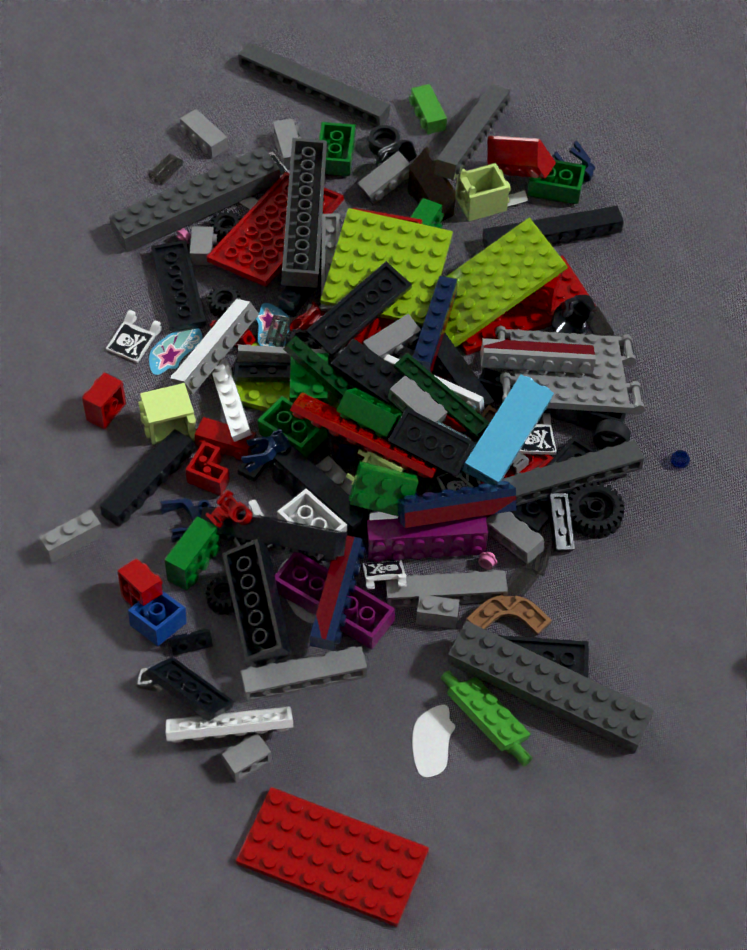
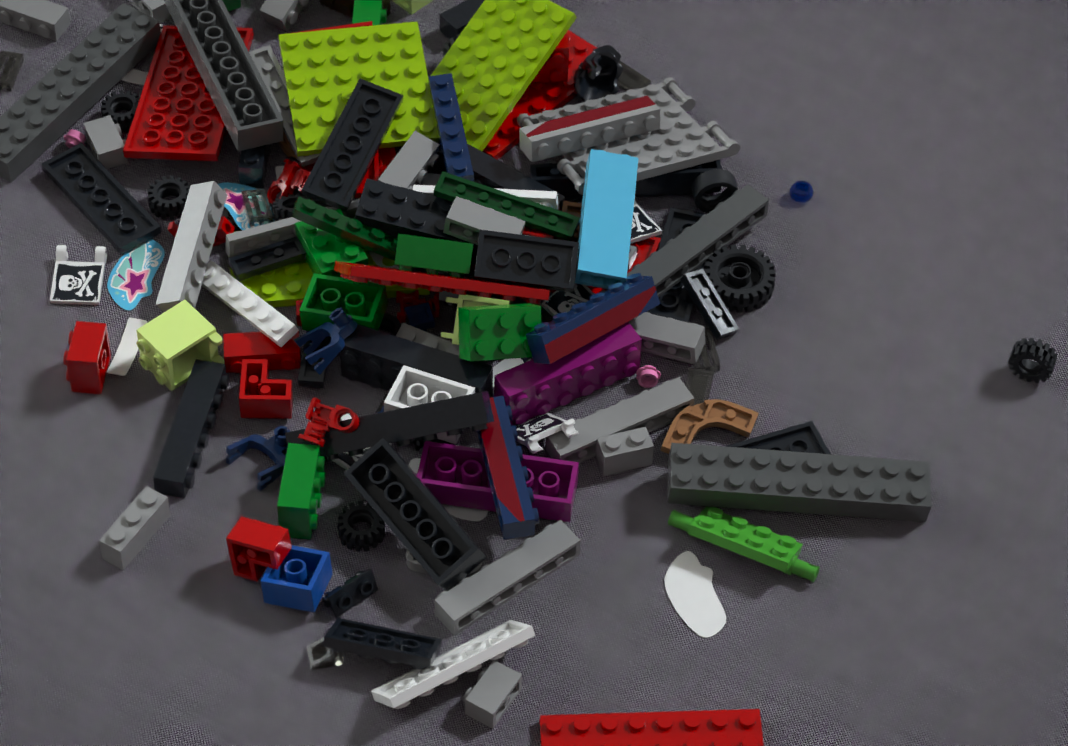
camera: 25 degrees left, 5 degrees down
(133, 408) = (127, 348): none -> white sticker

